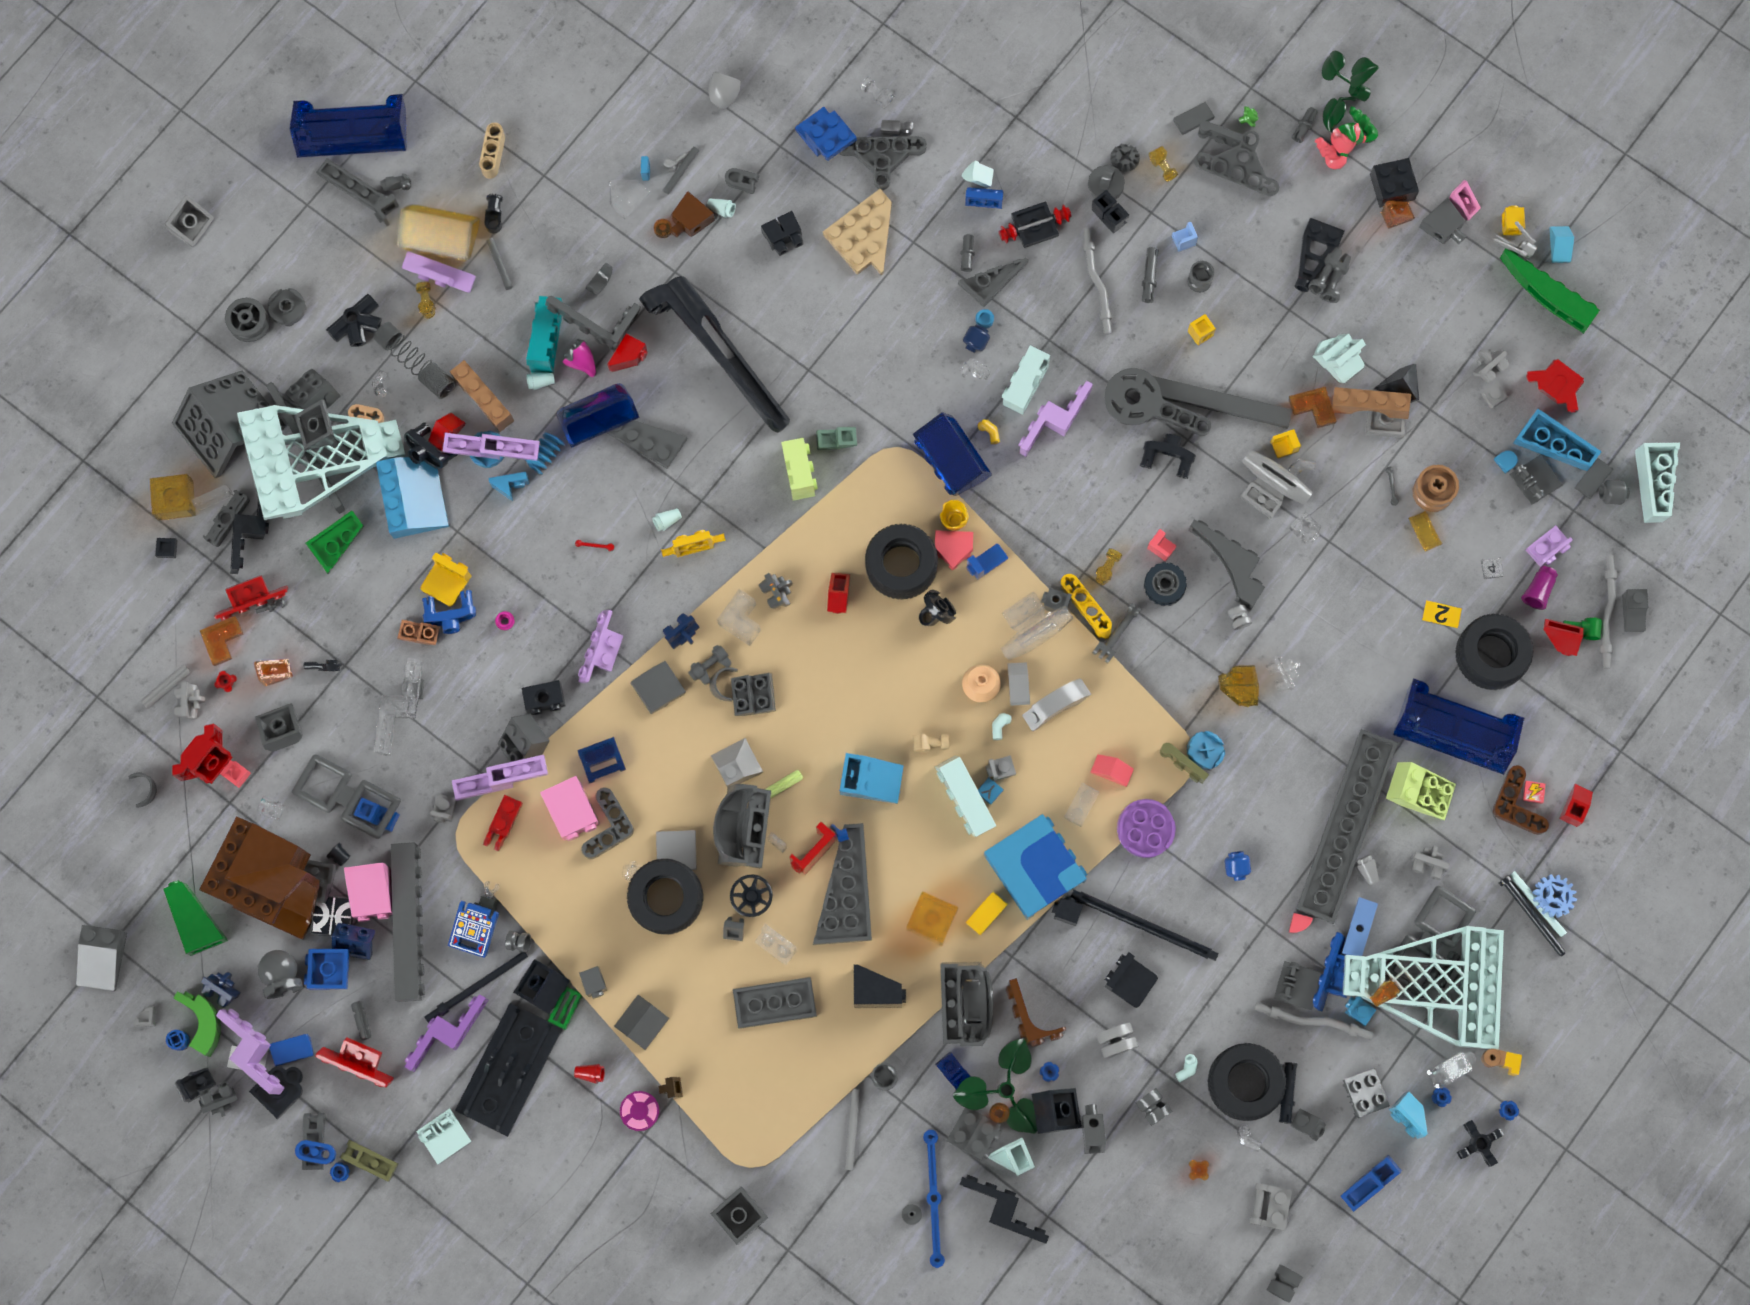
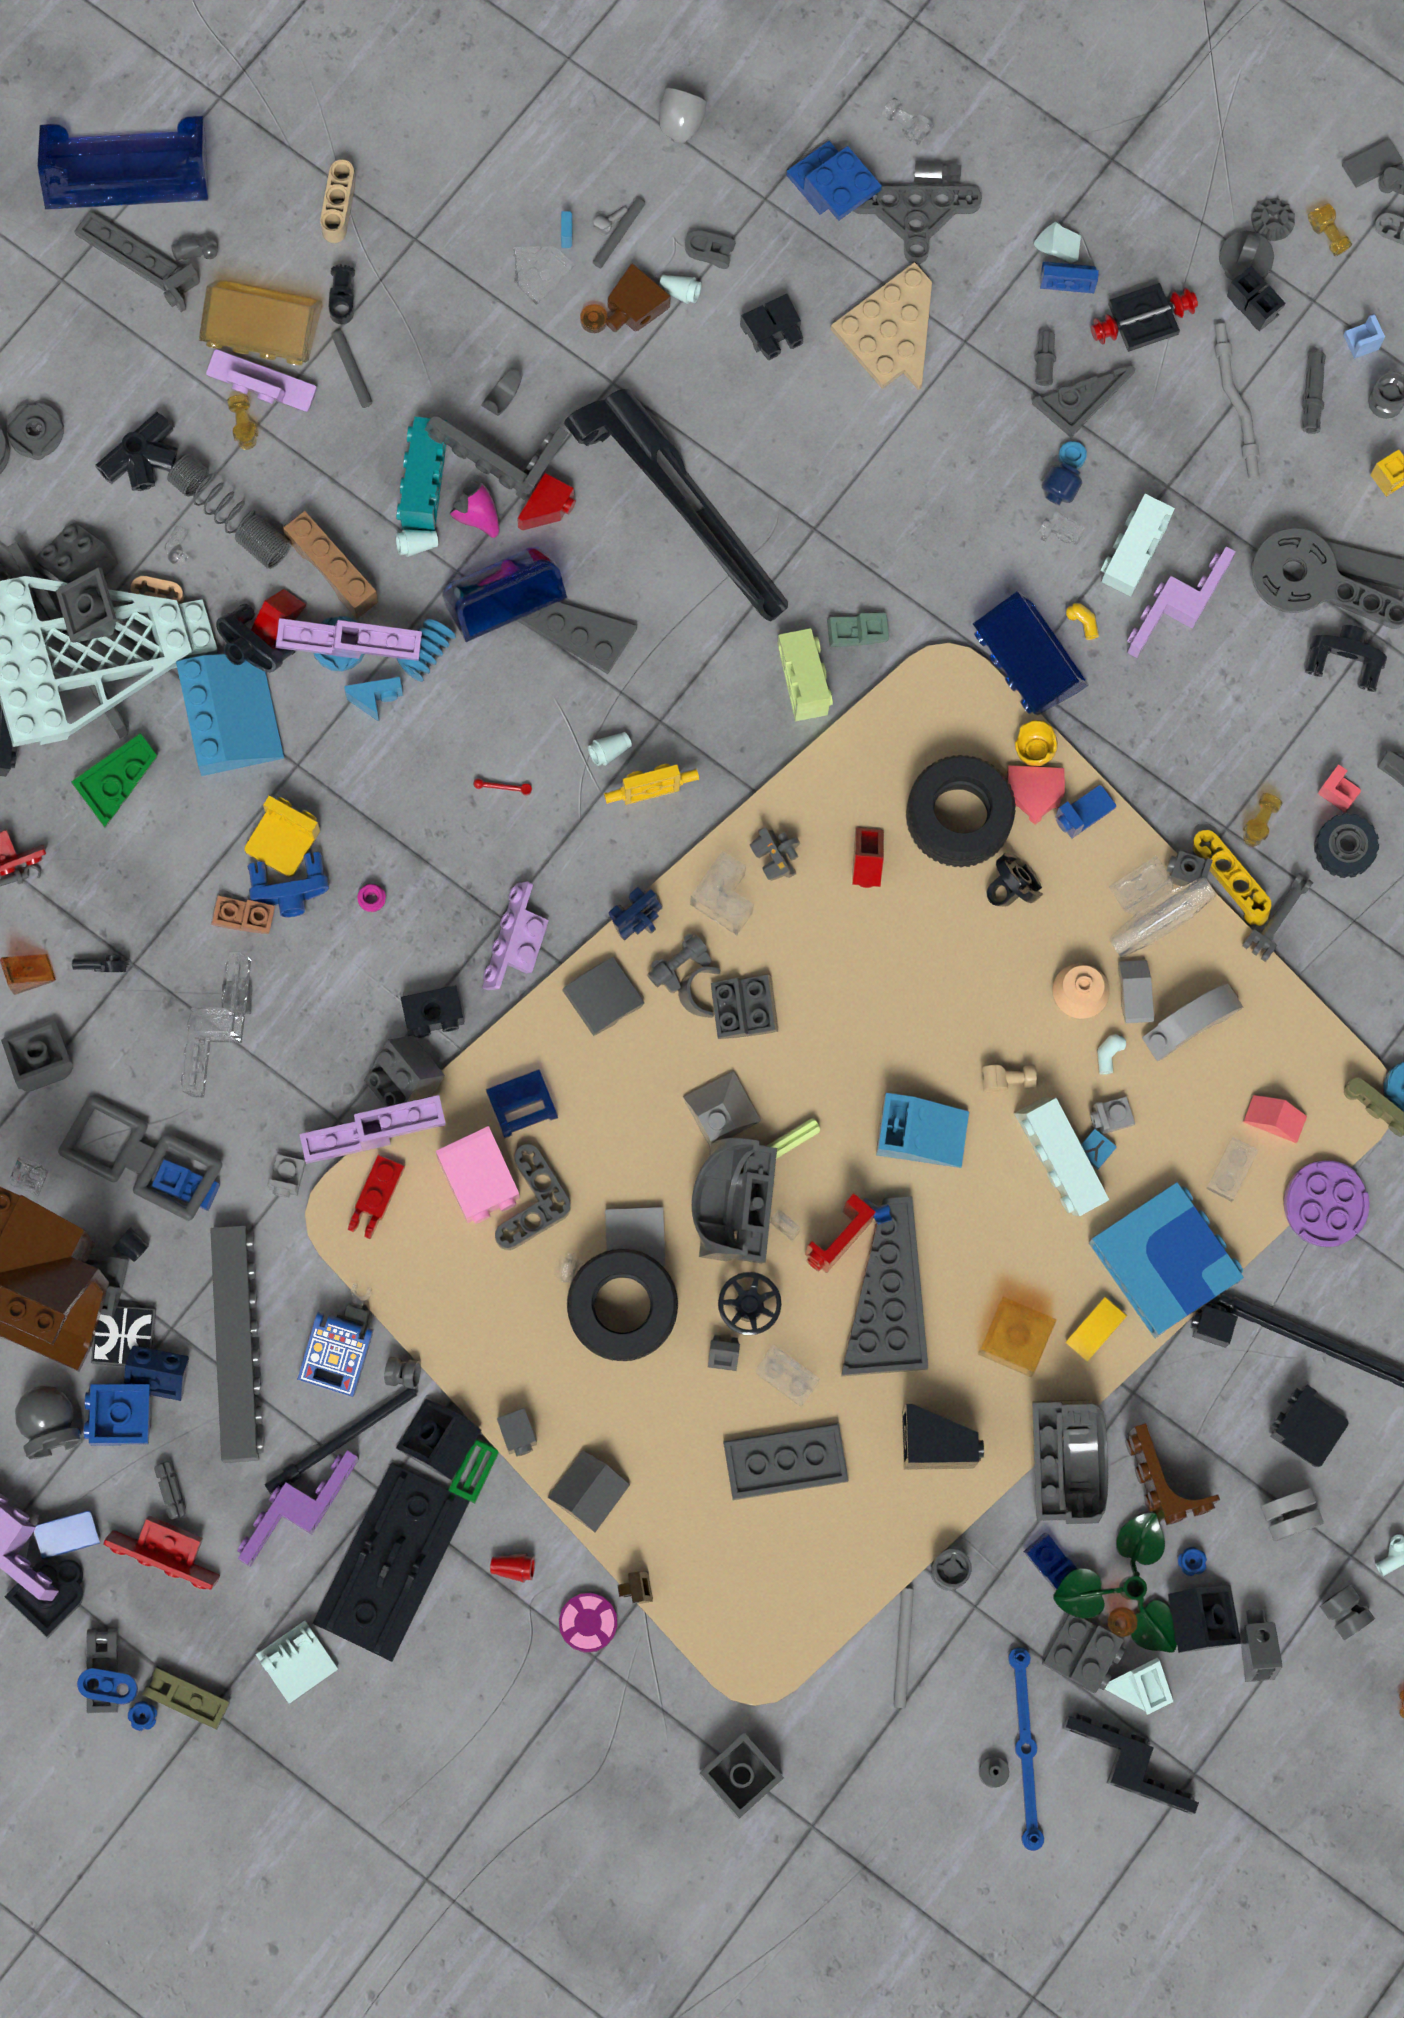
camera: 10 degrees left, 0 degrees up
(369, 891) = (180, 1299): bright pink slope -> none

